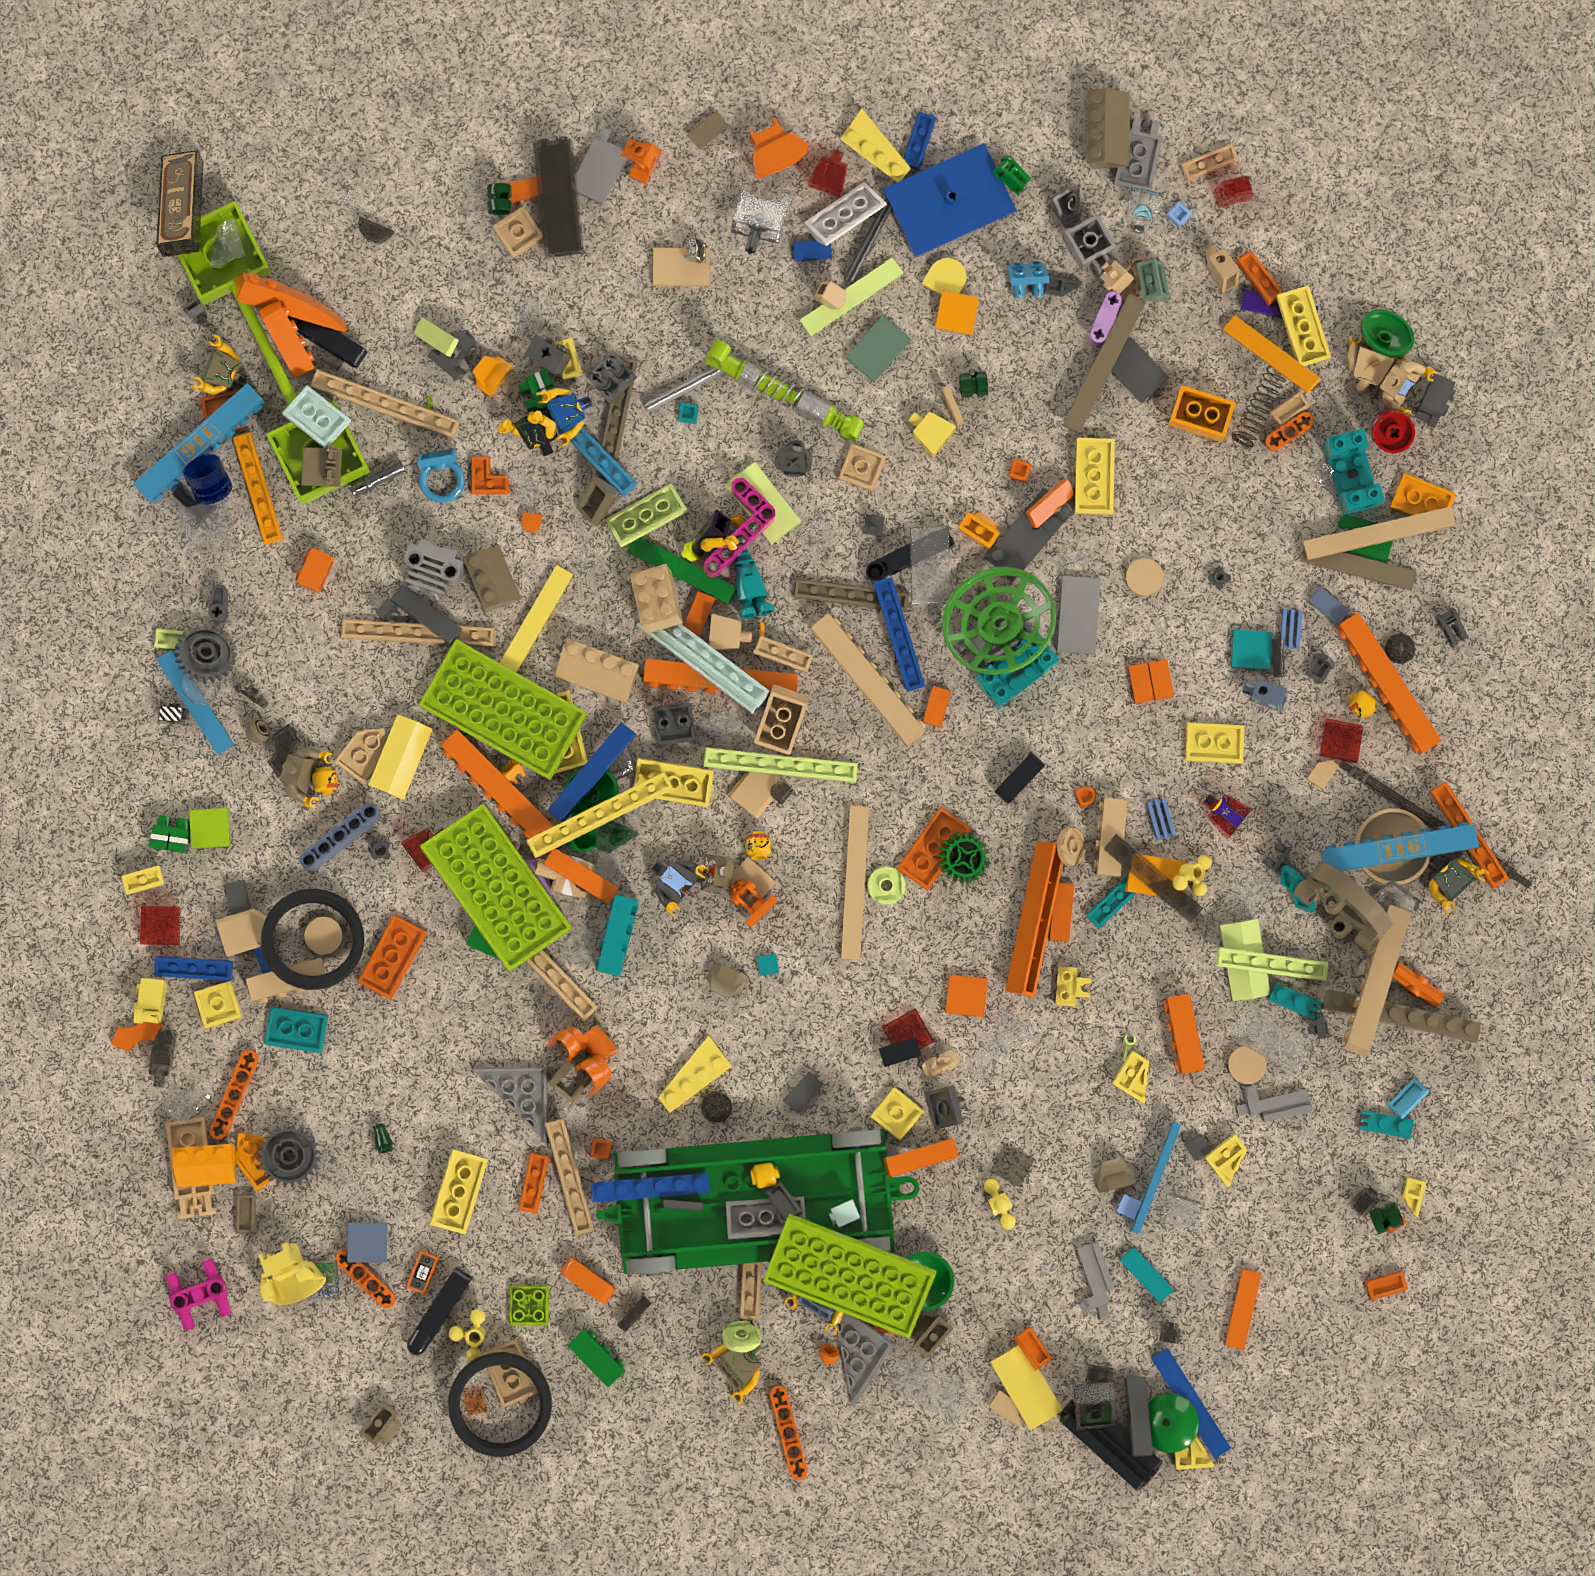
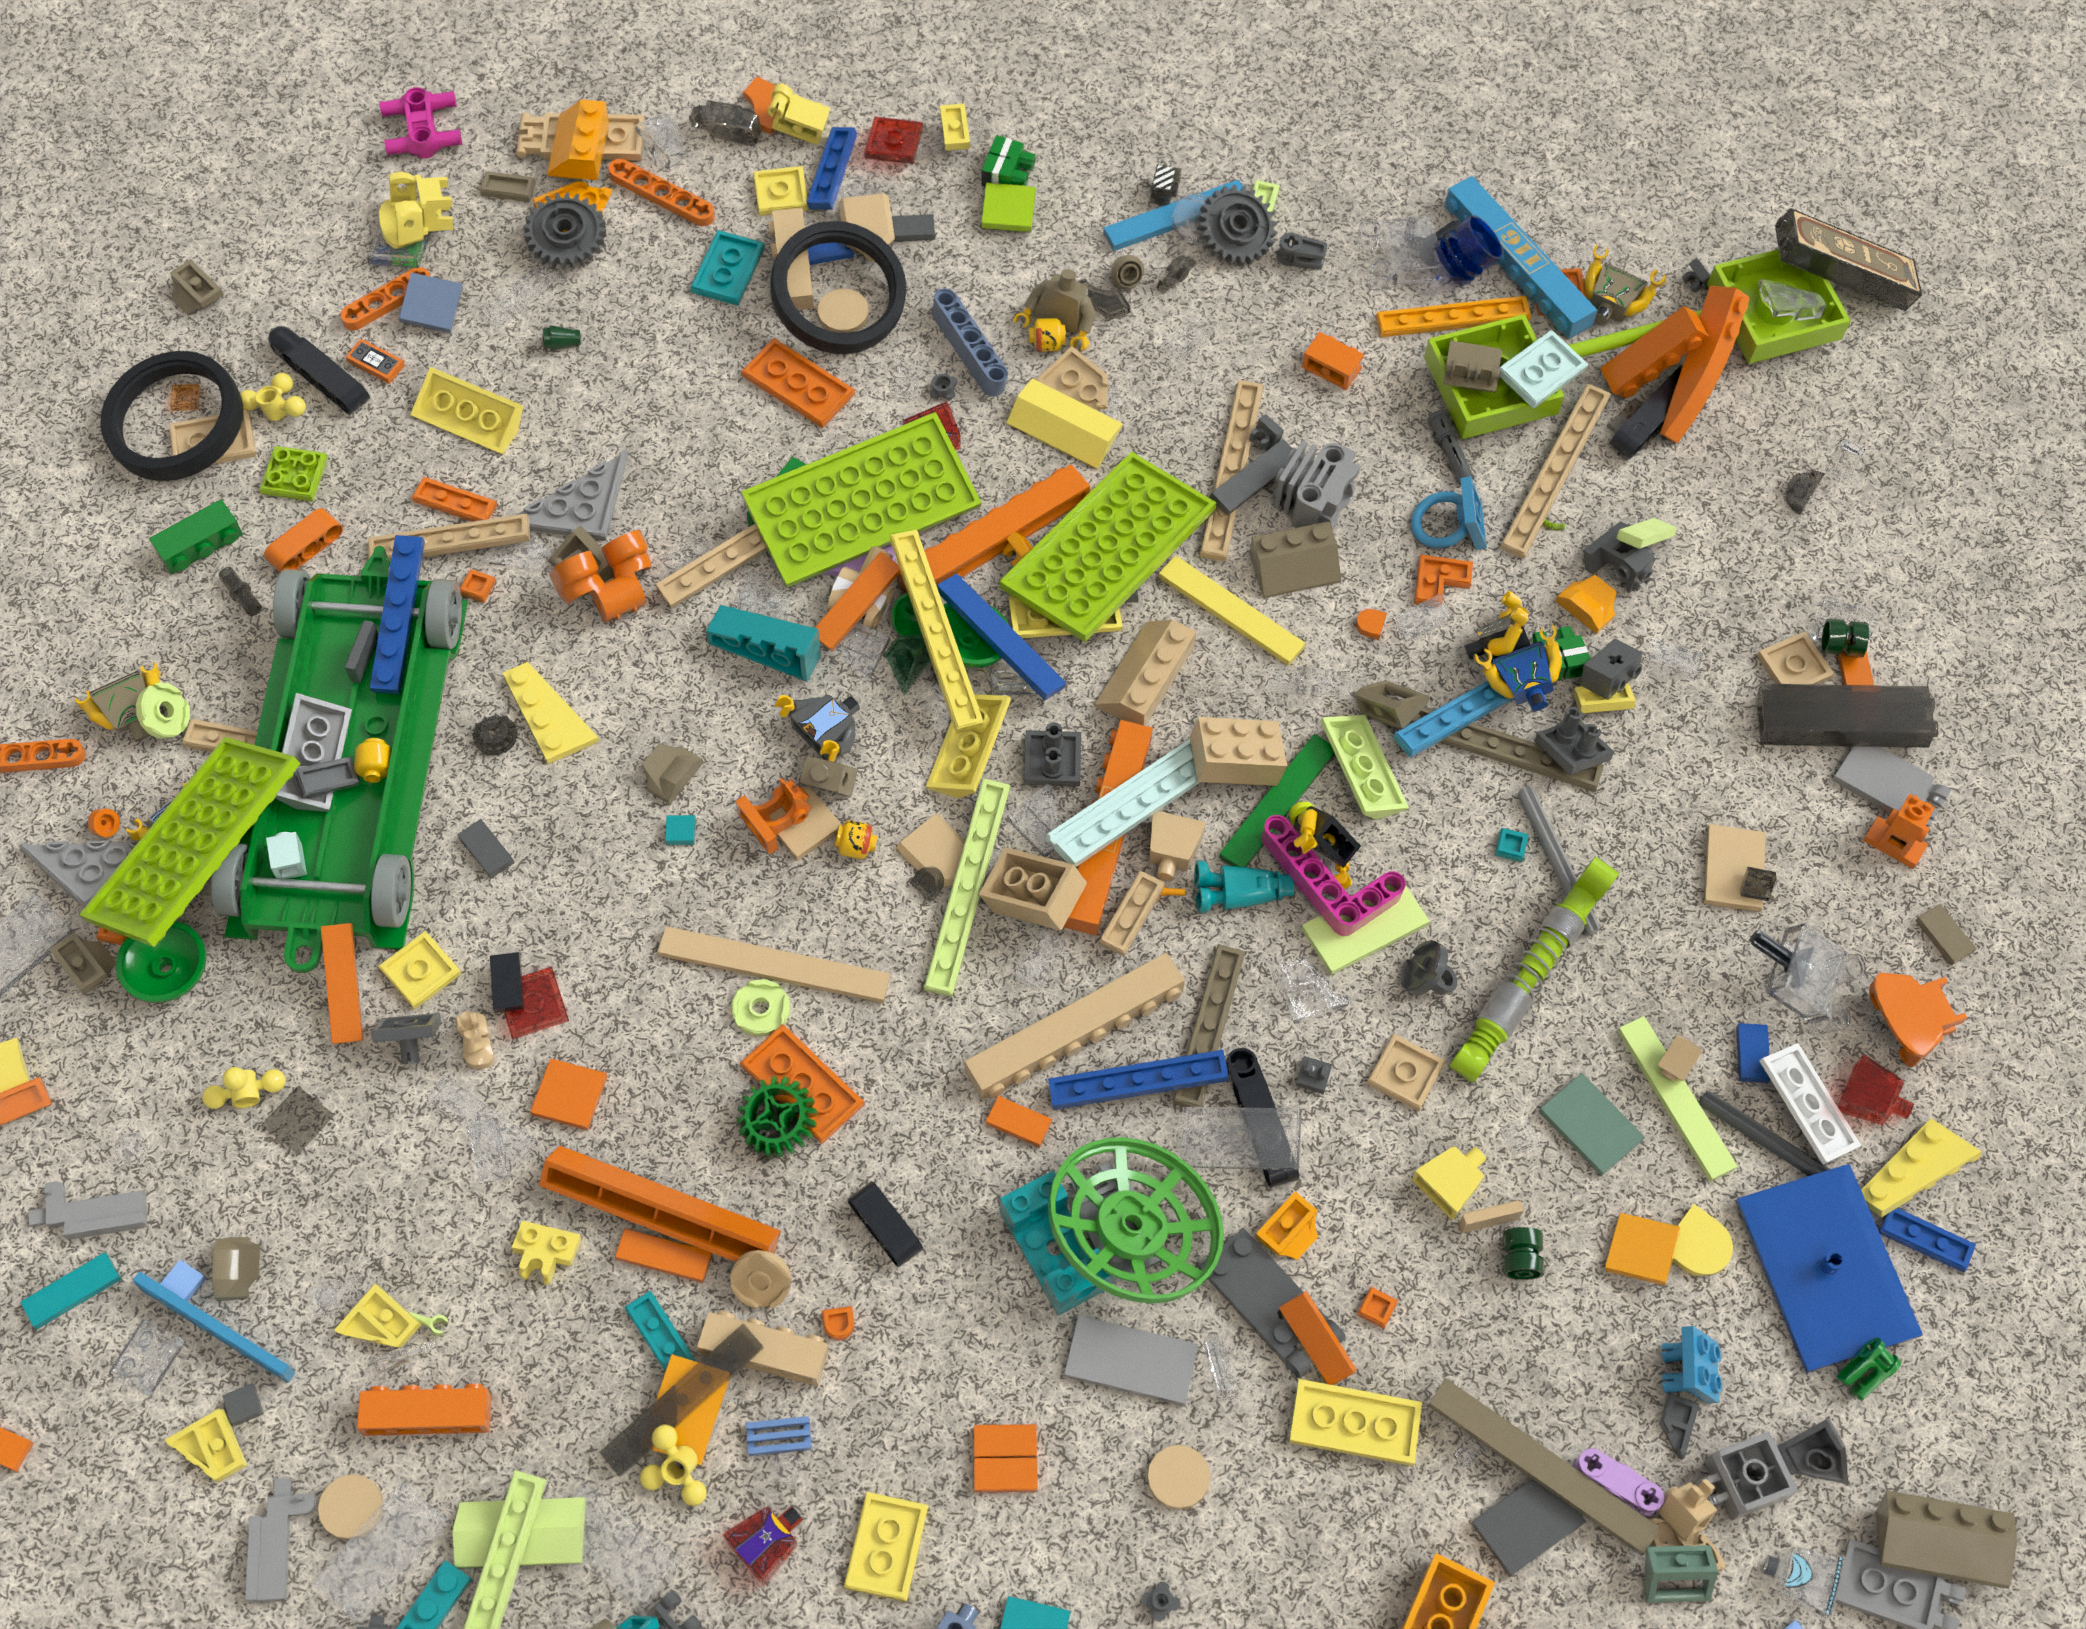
camera: 100 degrees right, 20 degrees down
(699, 613) = (1218, 818): orange tile -> none

